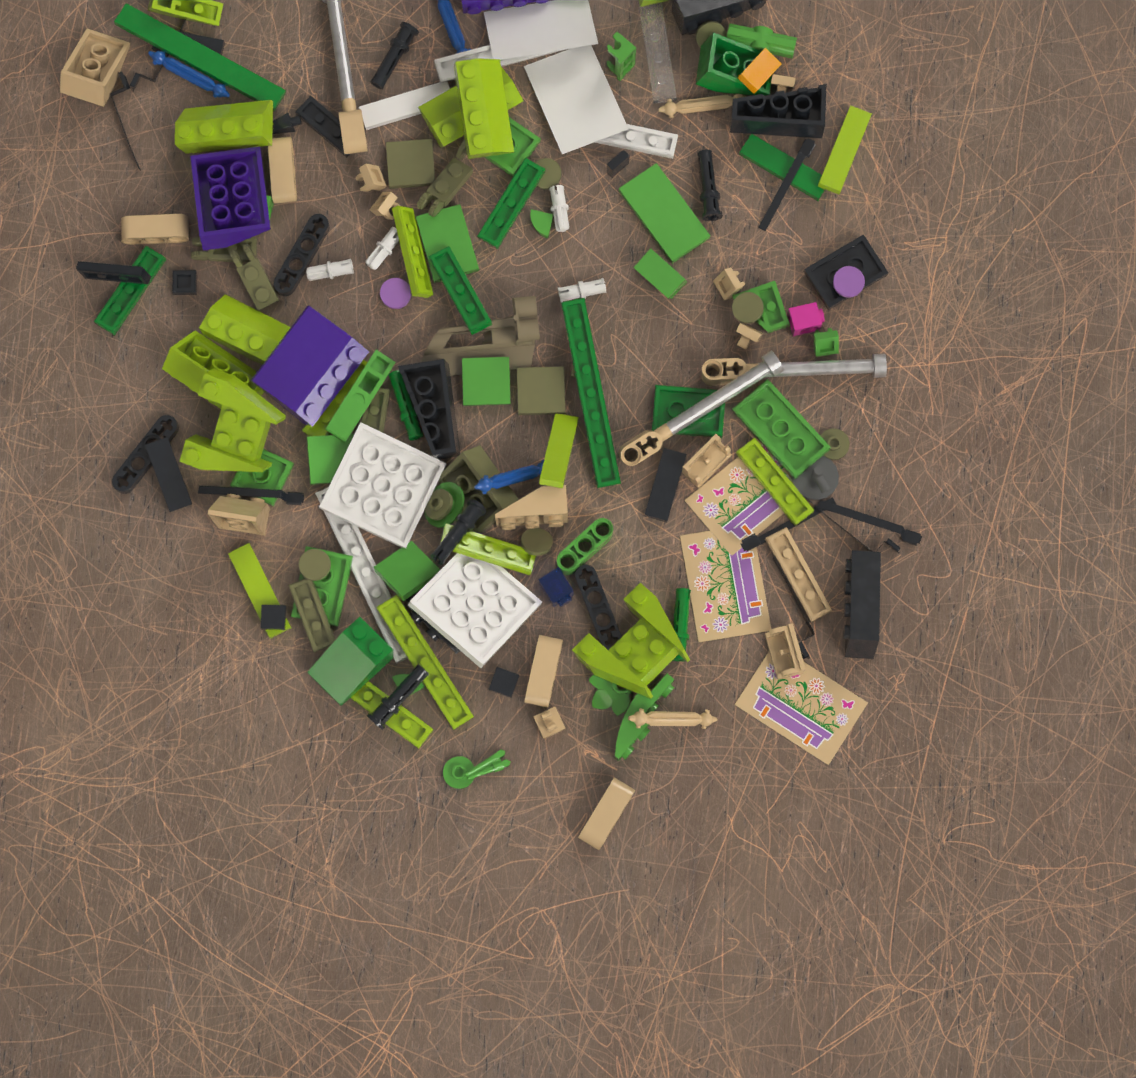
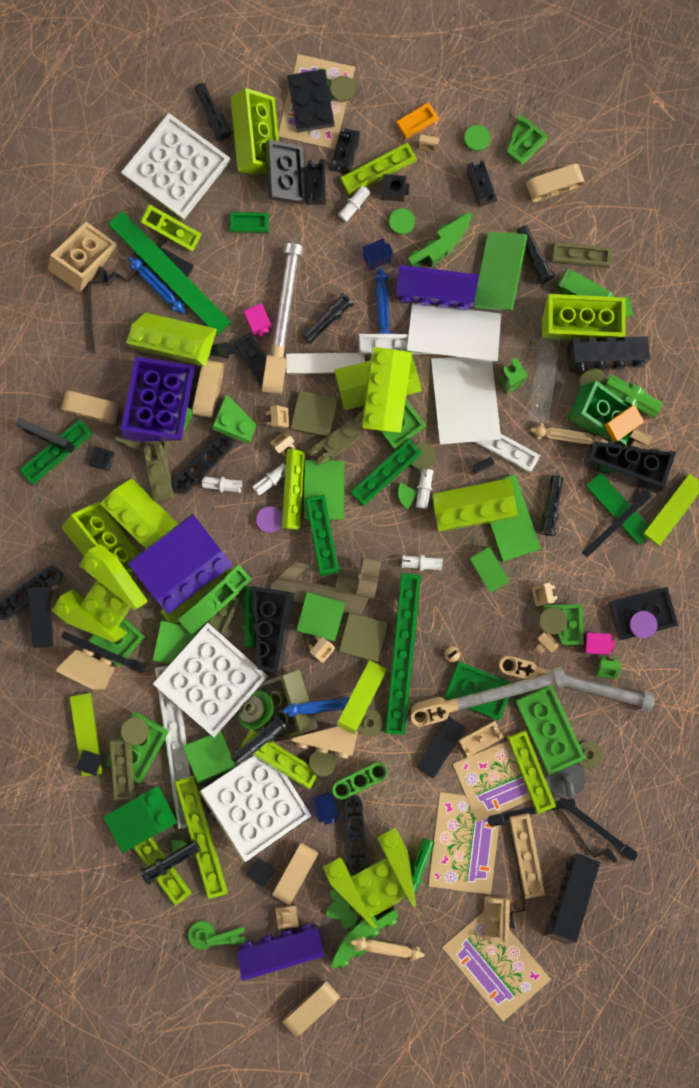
camera: 15 degrees right, 5 degrees up
(316, 79) = (258, 320): none -> dark pink brick
(322, 197) = (234, 422): none -> bright green wing
(498, 416) = (322, 649): none -> tan tile
(553, 758) = (280, 951): none -> dark purple slope
(578, 482) = (371, 723): none -> olive piece
(622, 209) = (475, 505): none -> lime slope
(650, 382) = (449, 650): none -> tan hinge

